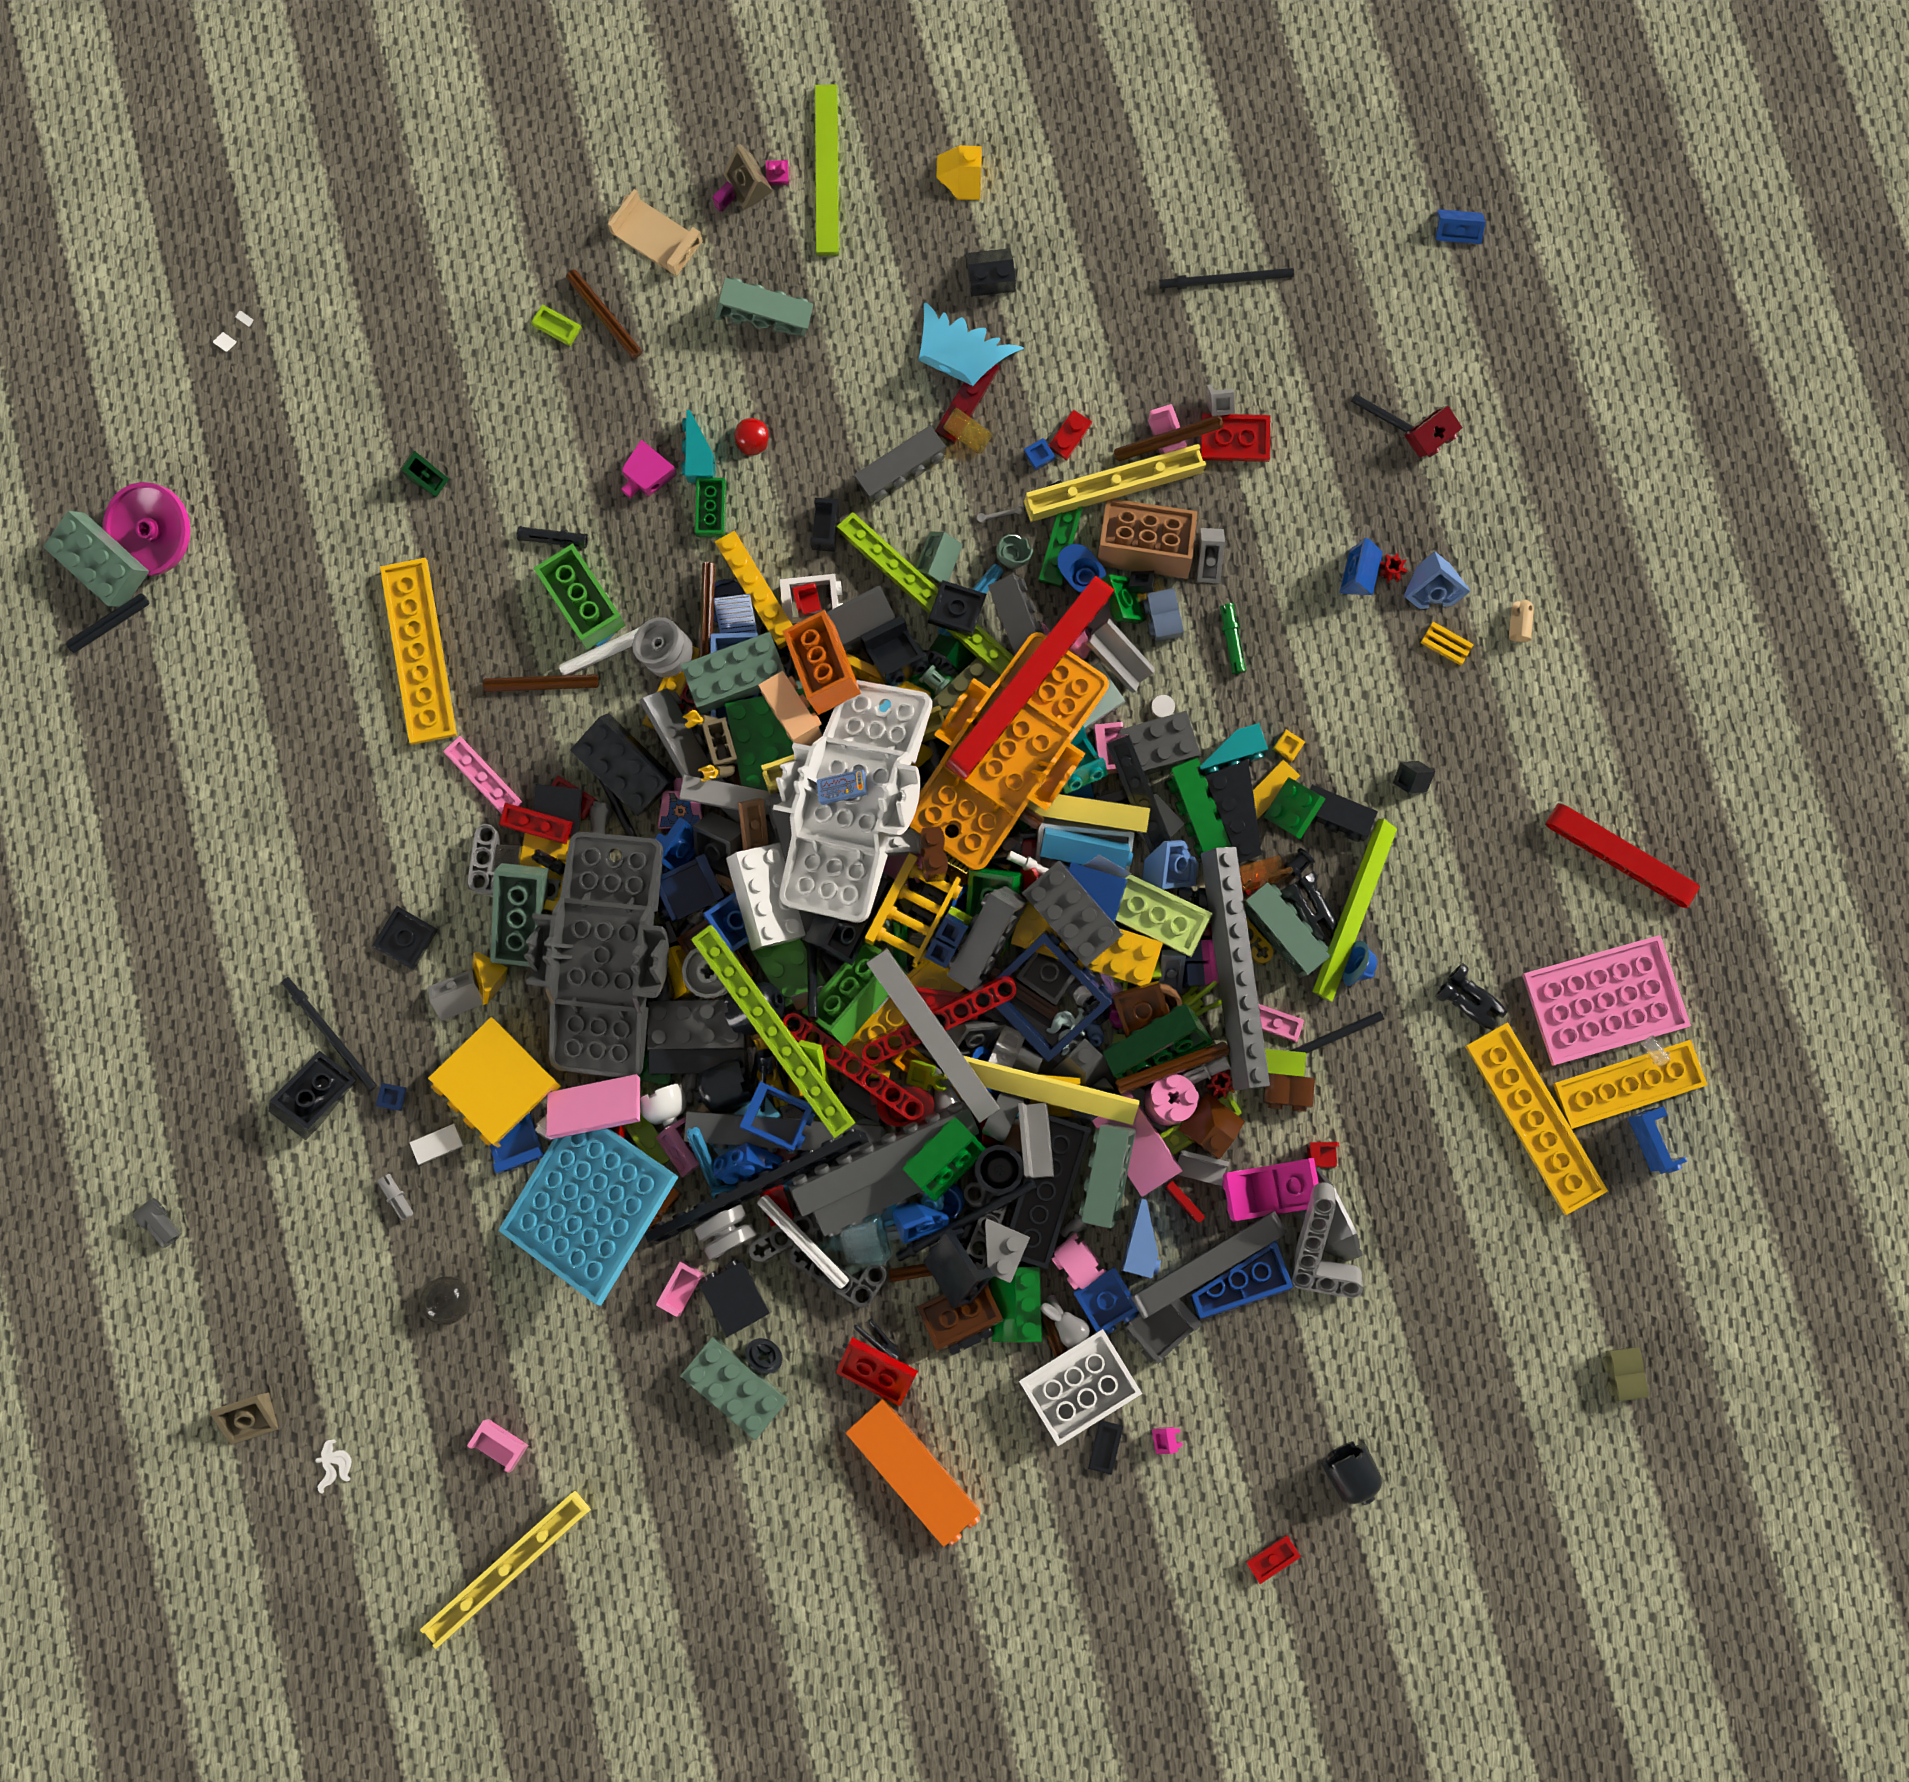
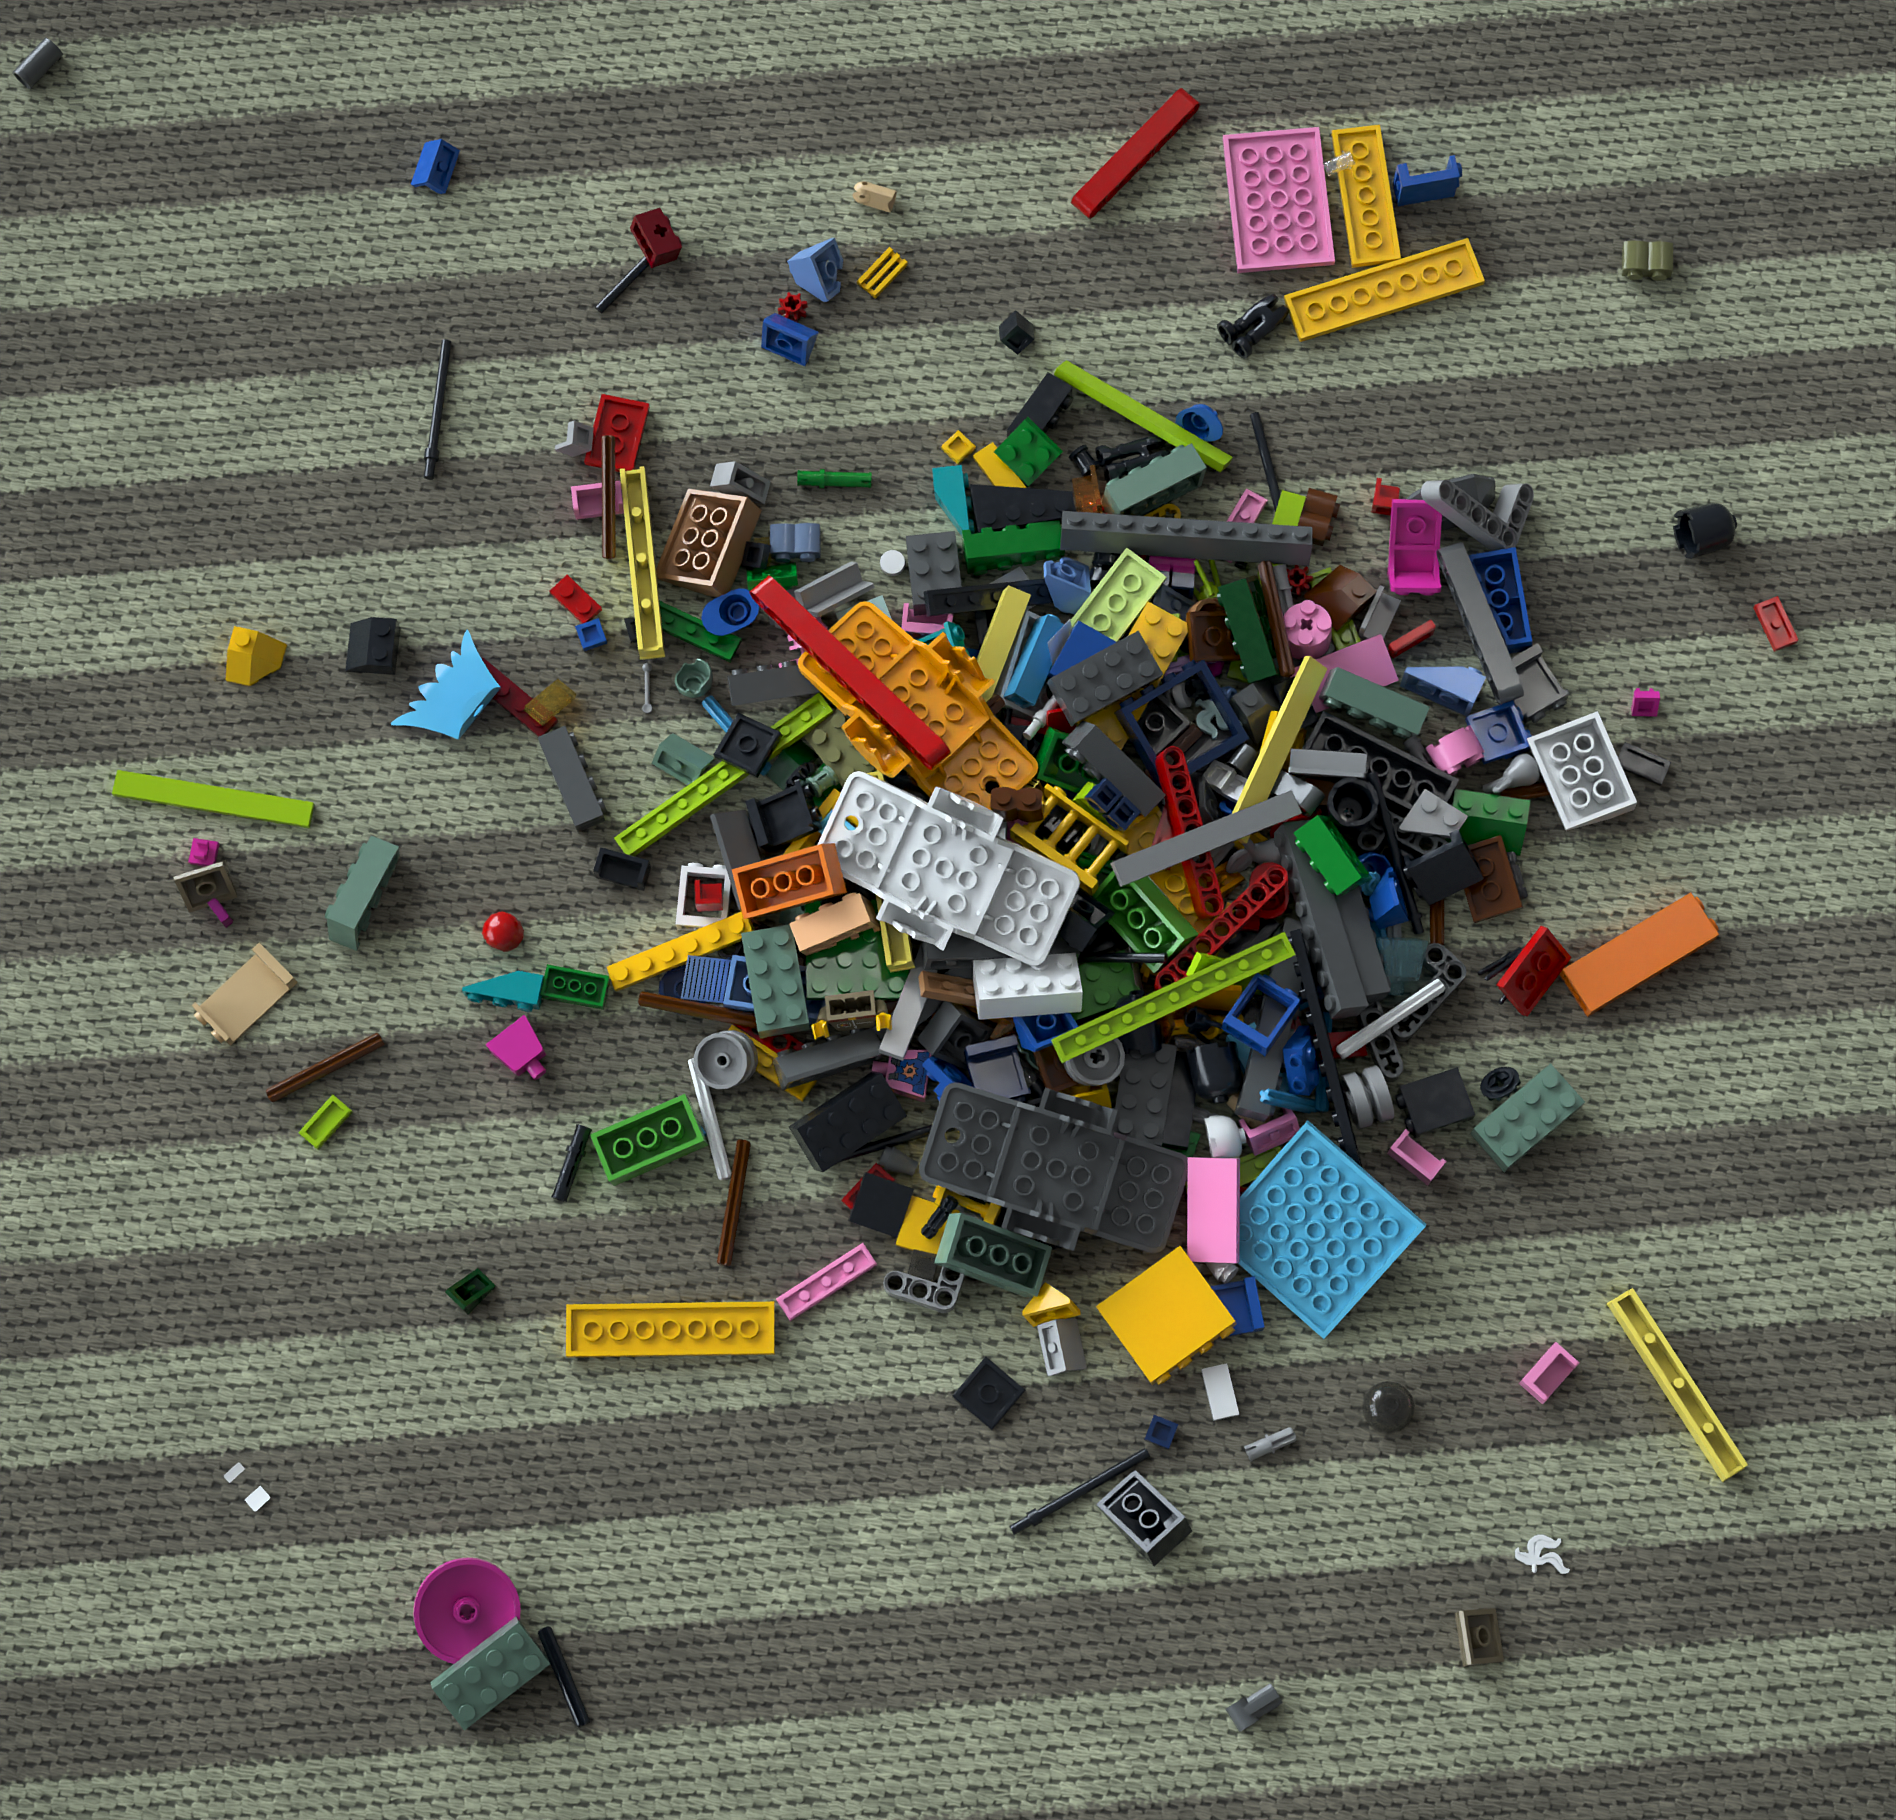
camera: 80 degrees left, 5 degrees down
(535, 823) = (892, 1229): red tile -> none
(842, 787) = (934, 874): medium blue tile -> none
(924, 1076) = (1239, 868): lime plate -> none

